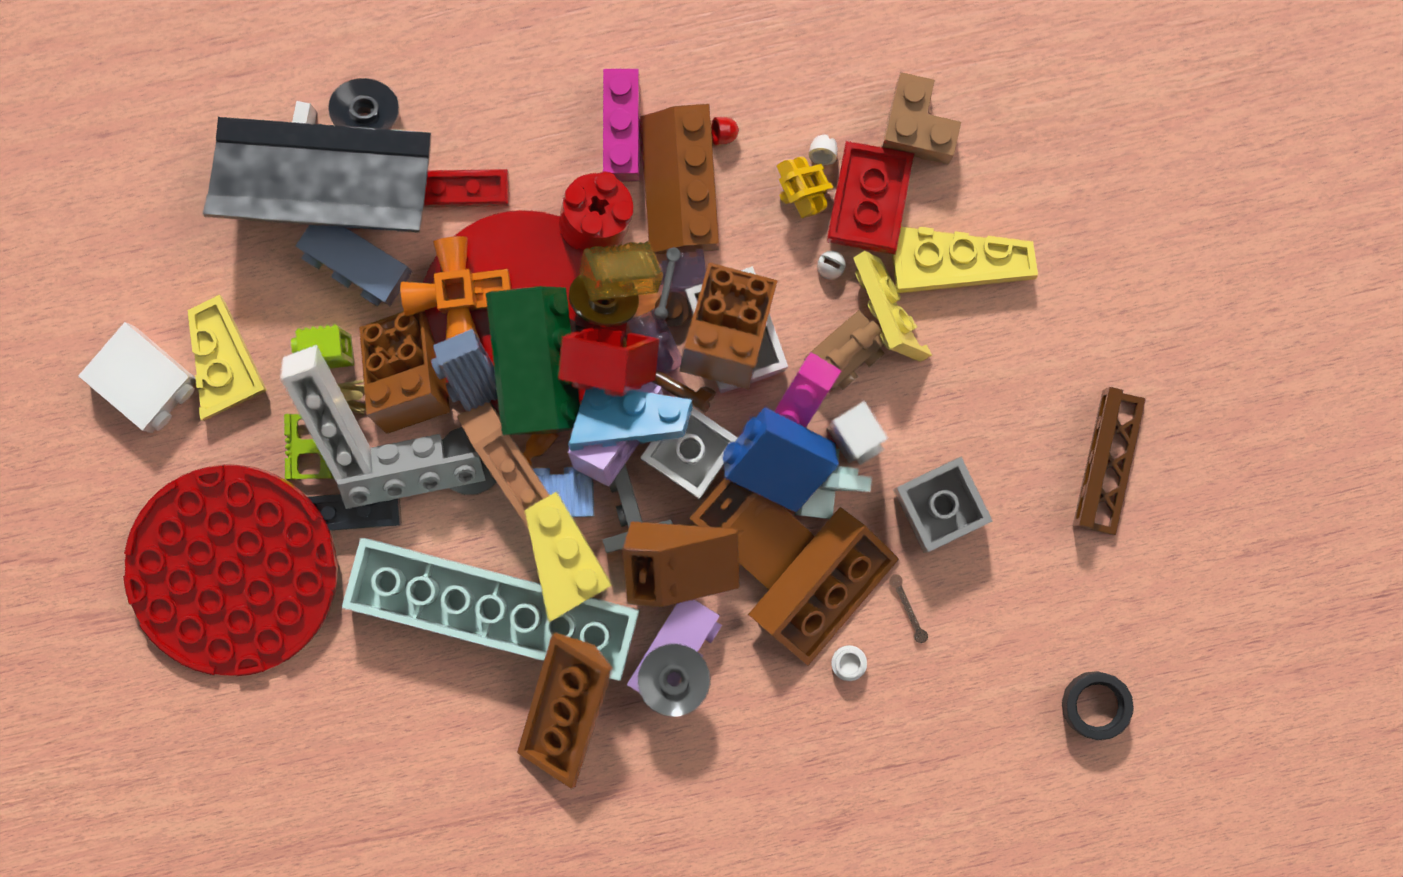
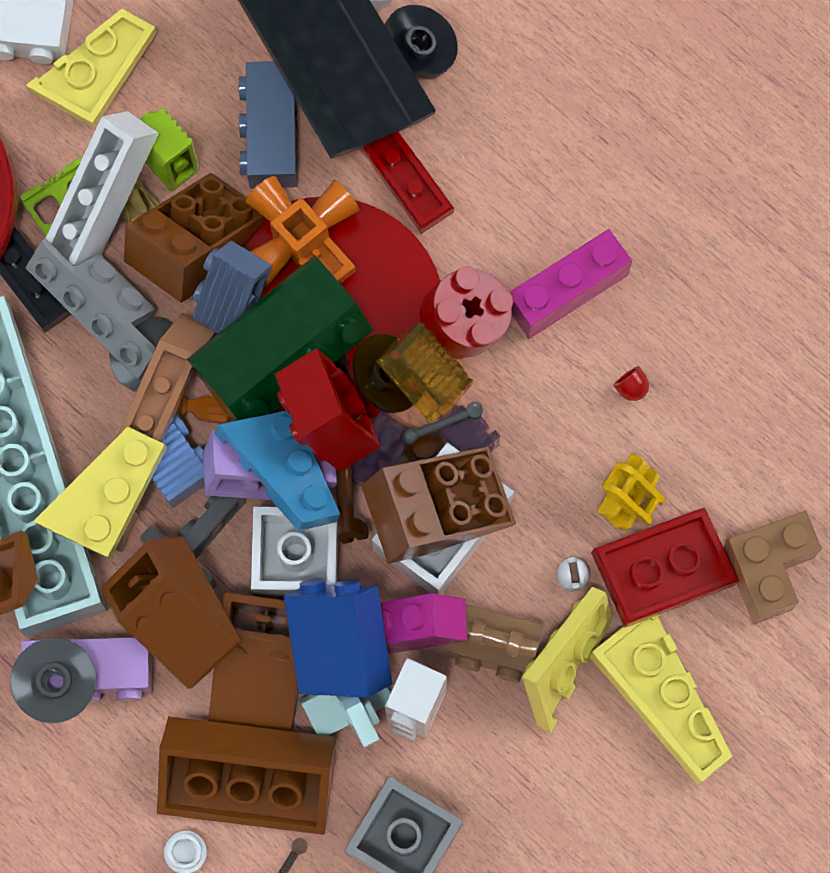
camera: 55 degrees right, 10 degrees down
(679, 179) = (556, 375): dark orange slope -> none
(823, 150) = (679, 491): white hinge -> none

